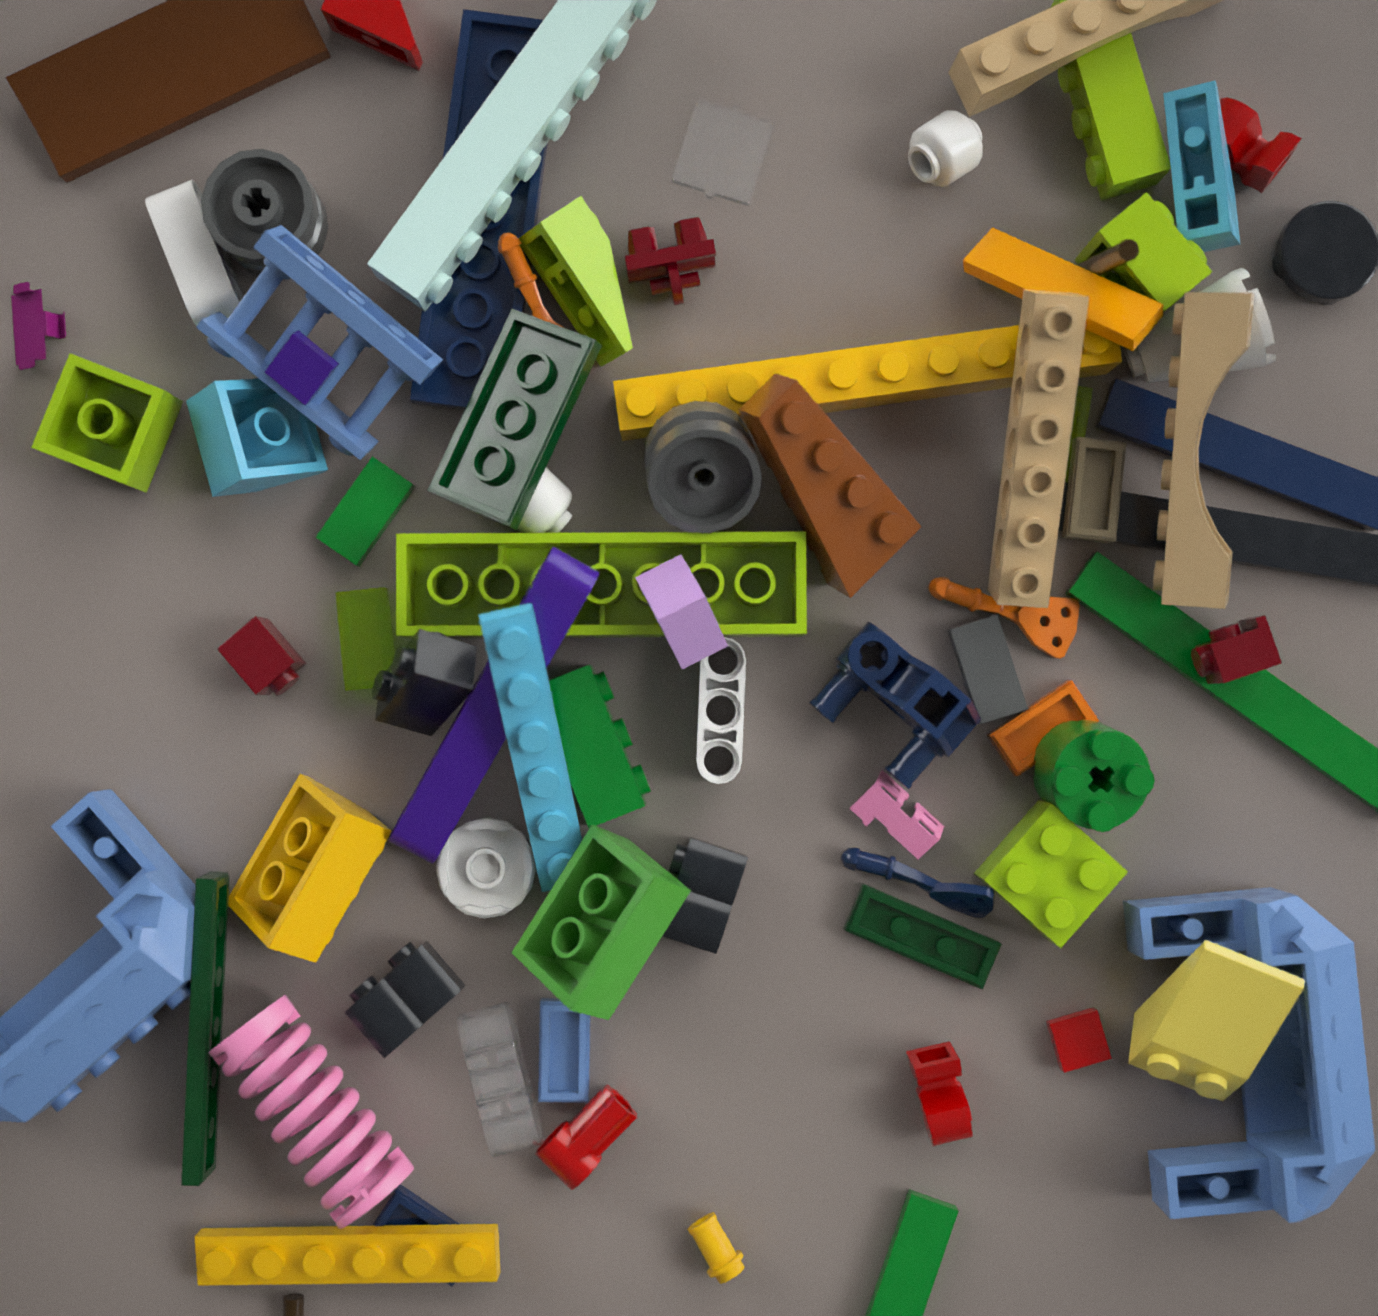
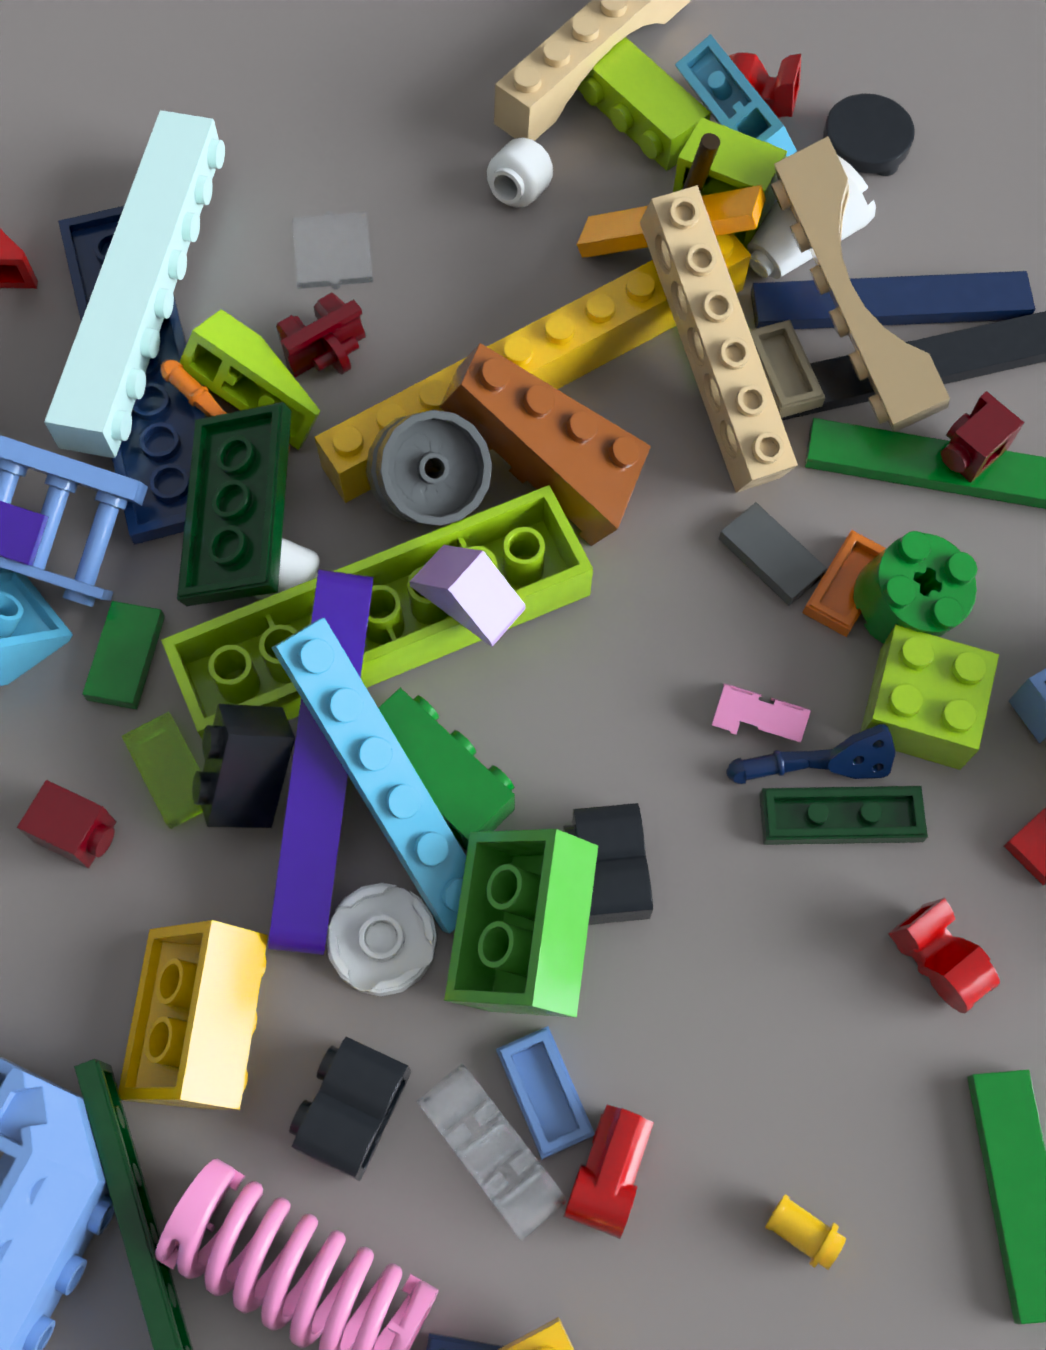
camera: 20 degrees left, 20 degrees down
(729, 734) = (546, 708): white beam -> none
(899, 686) = (729, 579): dark blue piece -> none
(1025, 617) = (780, 495): orange piece -> none

